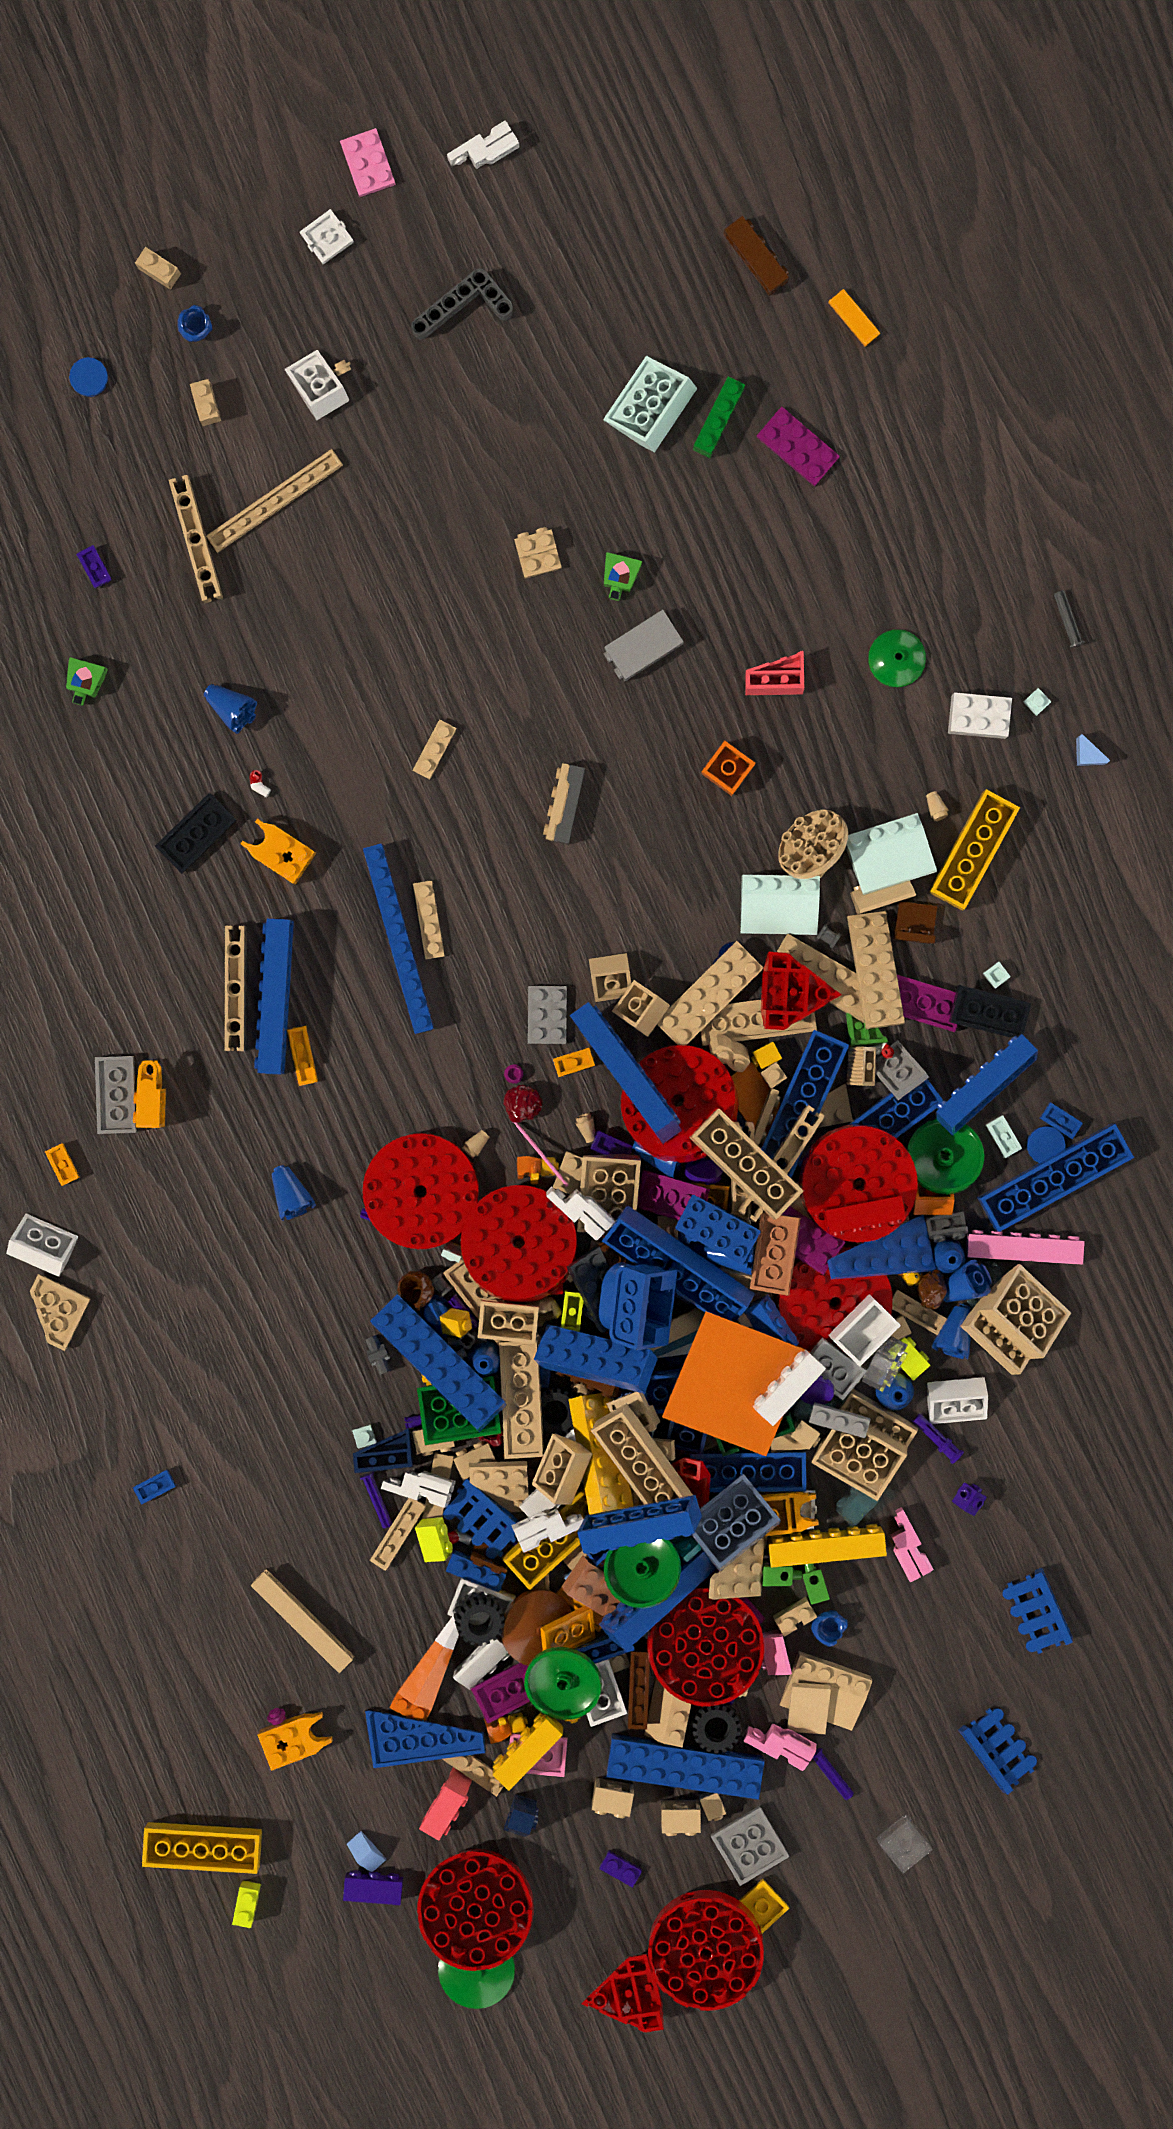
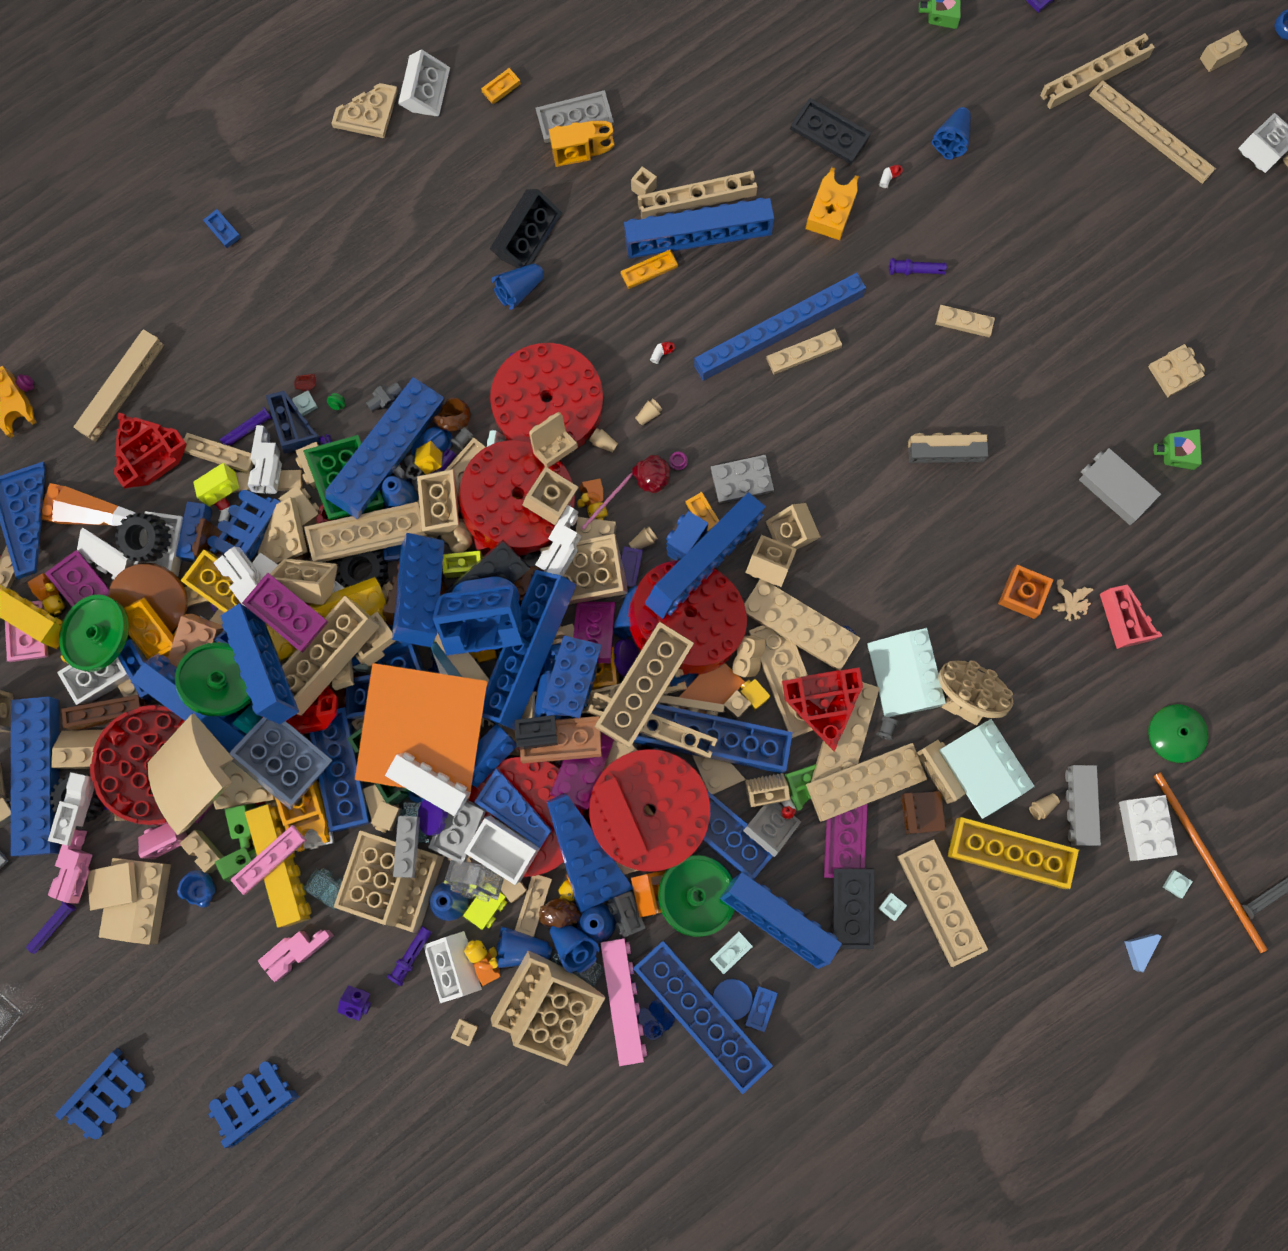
camera: 85 degrees right, 10 degrees down
(211, 1040) = (643, 182): none -> tan brick
(231, 1173) = (526, 229): none -> black slope
(343, 1431) = (305, 382): none -> clear red plate
(364, 792) = (907, 267): none -> dark purple pin
(371, 1403) = (336, 401): none -> green plate
(380, 1605) = (145, 451): none -> red wedge
(393, 1063) = (660, 350): none -> arm
(456, 1091) = (648, 412): none -> tan cone
(475, 1196) = (551, 440): none -> tan bracket
(532, 1211) = (550, 495): none -> tan brick
(594, 1490) = (285, 612): none -> magenta plate
(601, 1086) = (686, 536): none -> blue brick
(729, 1611) = (188, 774): none -> tan slope
(731, 1730) = (73, 809): none -> white plate
(746, 724) = (1071, 603): none -> tan piece
(764, 1275) = (536, 732): none -> black plate
(822, 1552) = (268, 860): none -> bright pink tile
(824, 1315) = (510, 807): none -> blue wing
(944, 769) = (1083, 805): none -> light grey brick
(965, 1369) = (484, 962): none -> piece
(1003, 927) = (942, 903): none -> tan plate
(1019, 1401) = (464, 1032): none -> tan plate
(1023, 665) = (1210, 863): none -> orange piece
(1046, 1221) = (655, 1017): none -> clear blue plate

